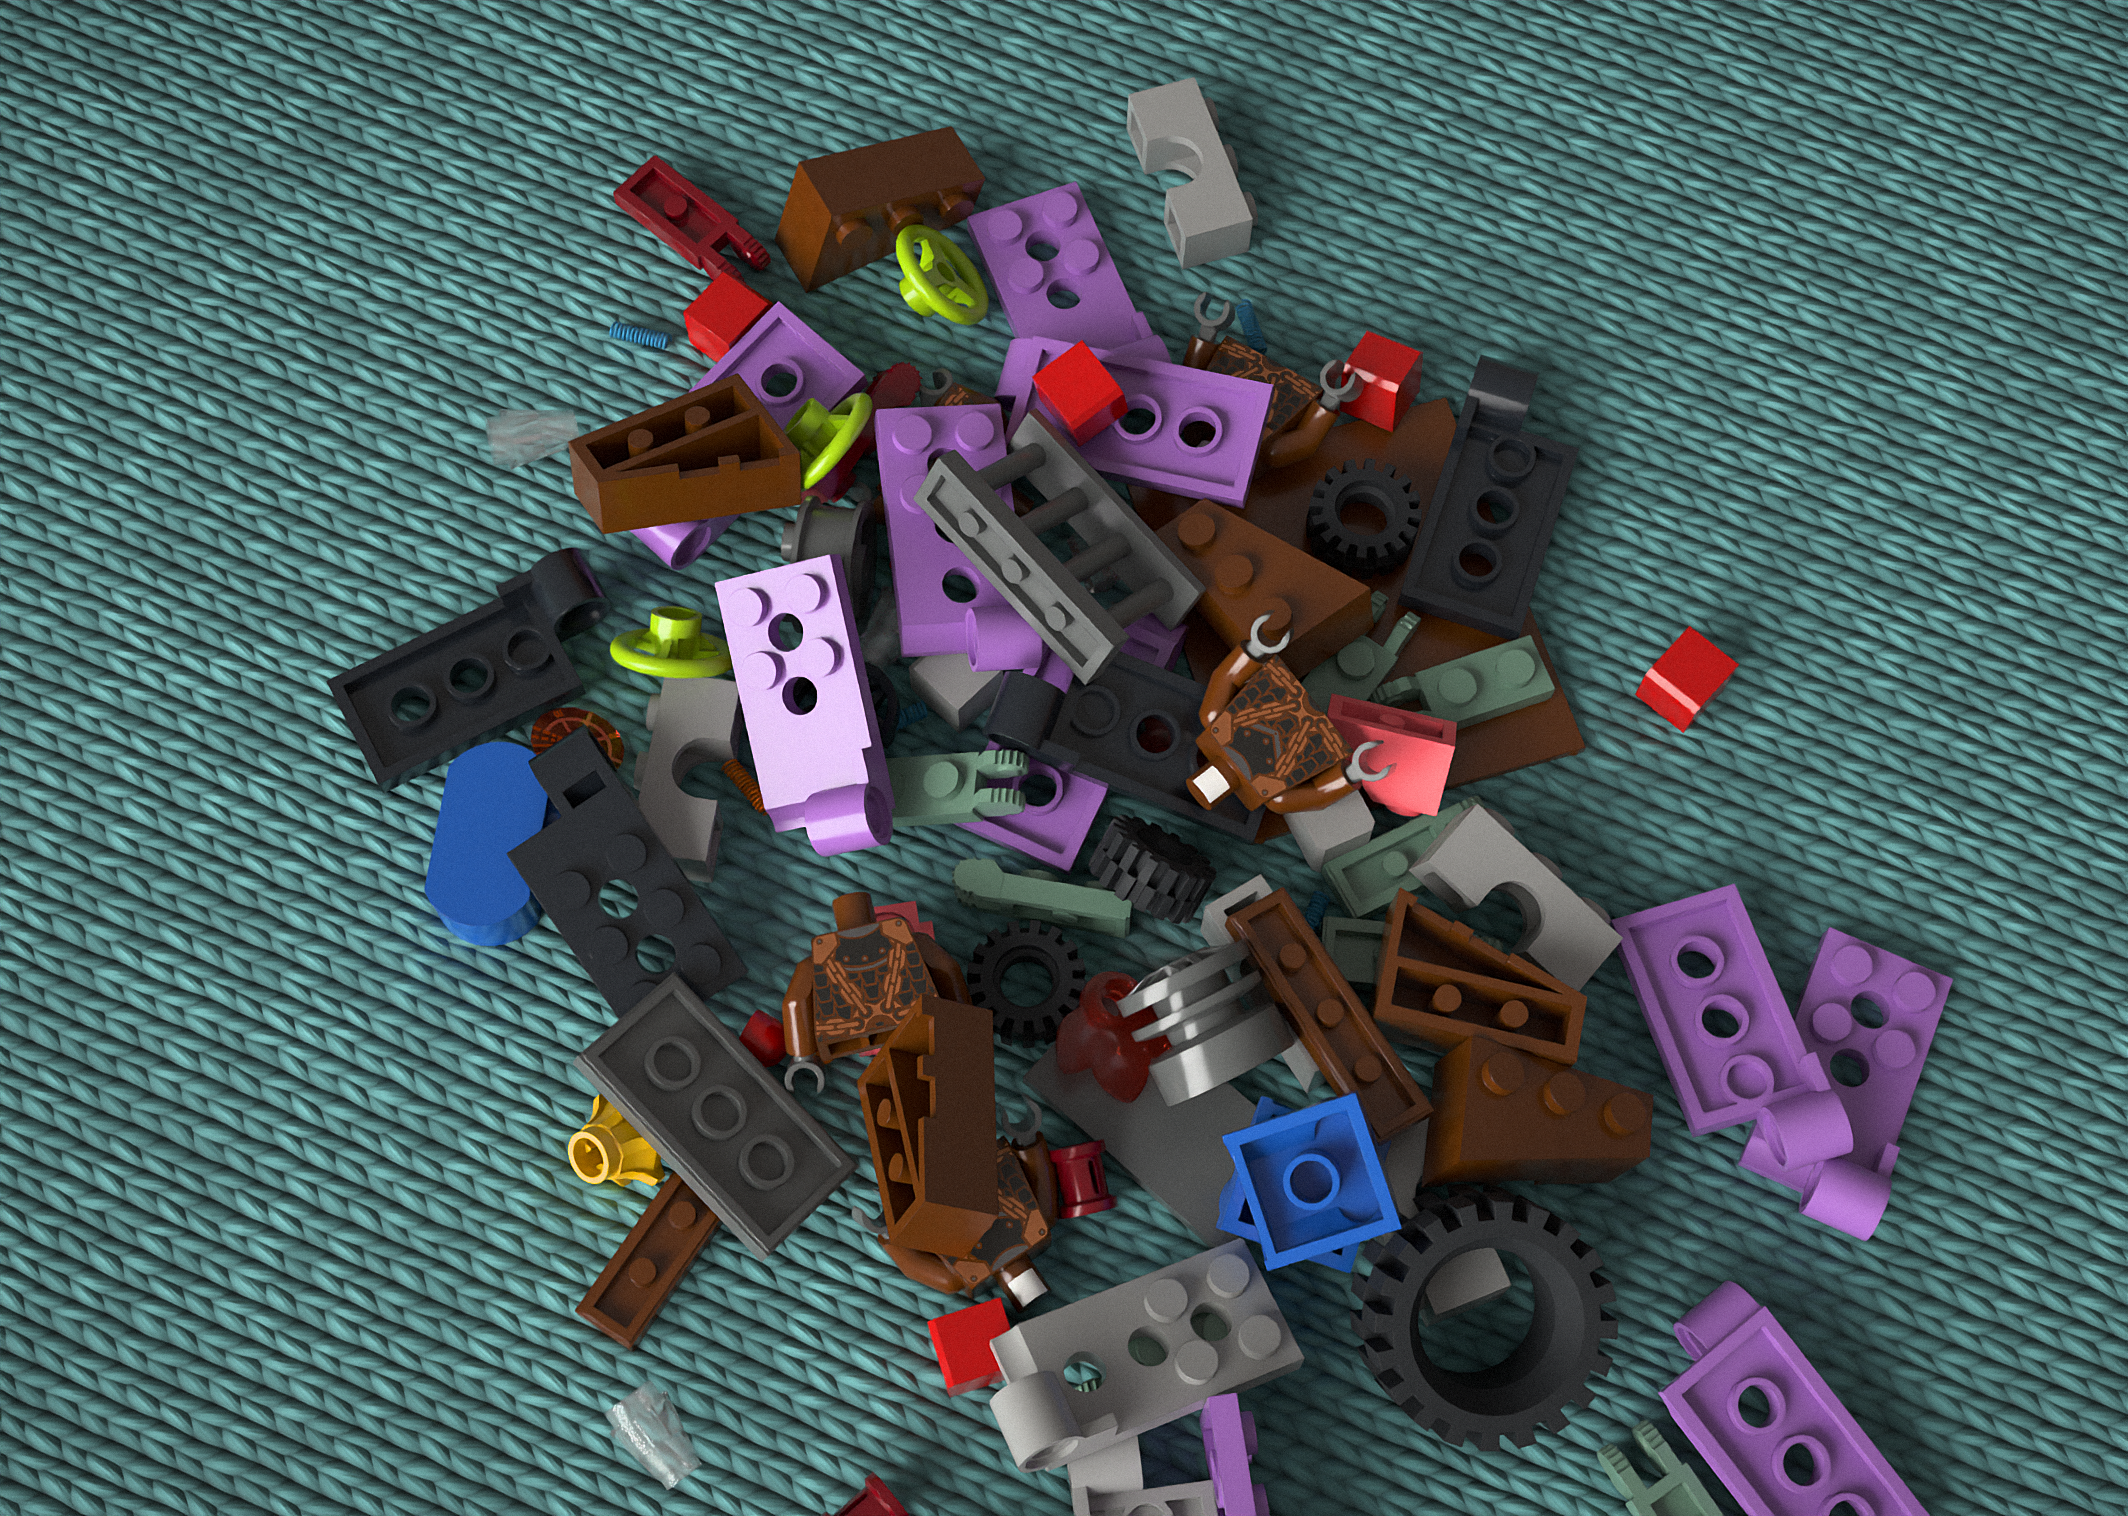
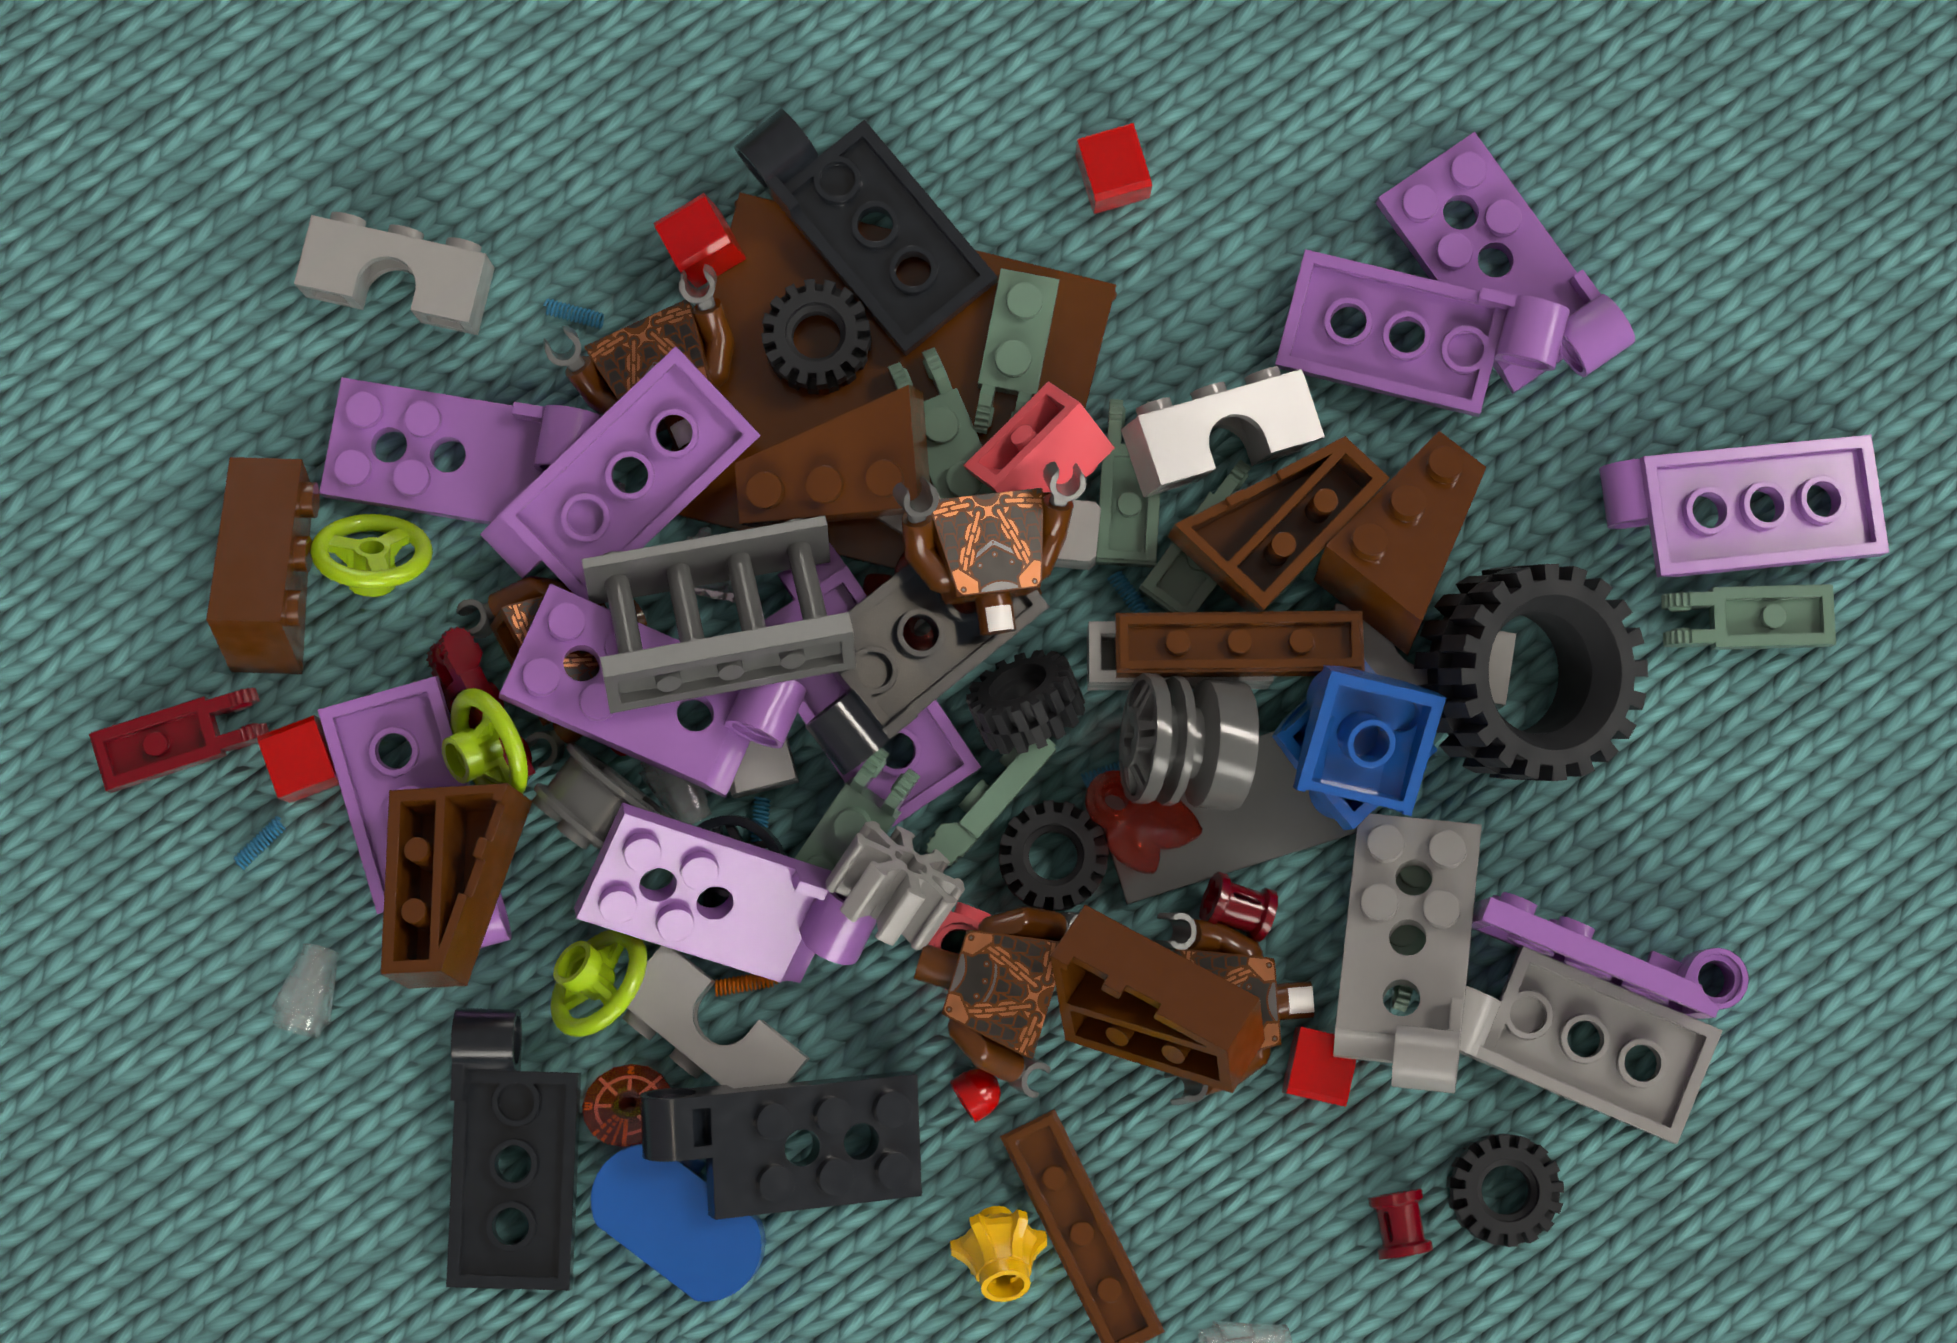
camera: 55 degrees left, 15 degrees up
(716, 1115) = (1026, 1165): dark grey tile -> none
(908, 837) = (894, 885): none -> light grey gear
(1080, 393) = (588, 513): red piece -> none

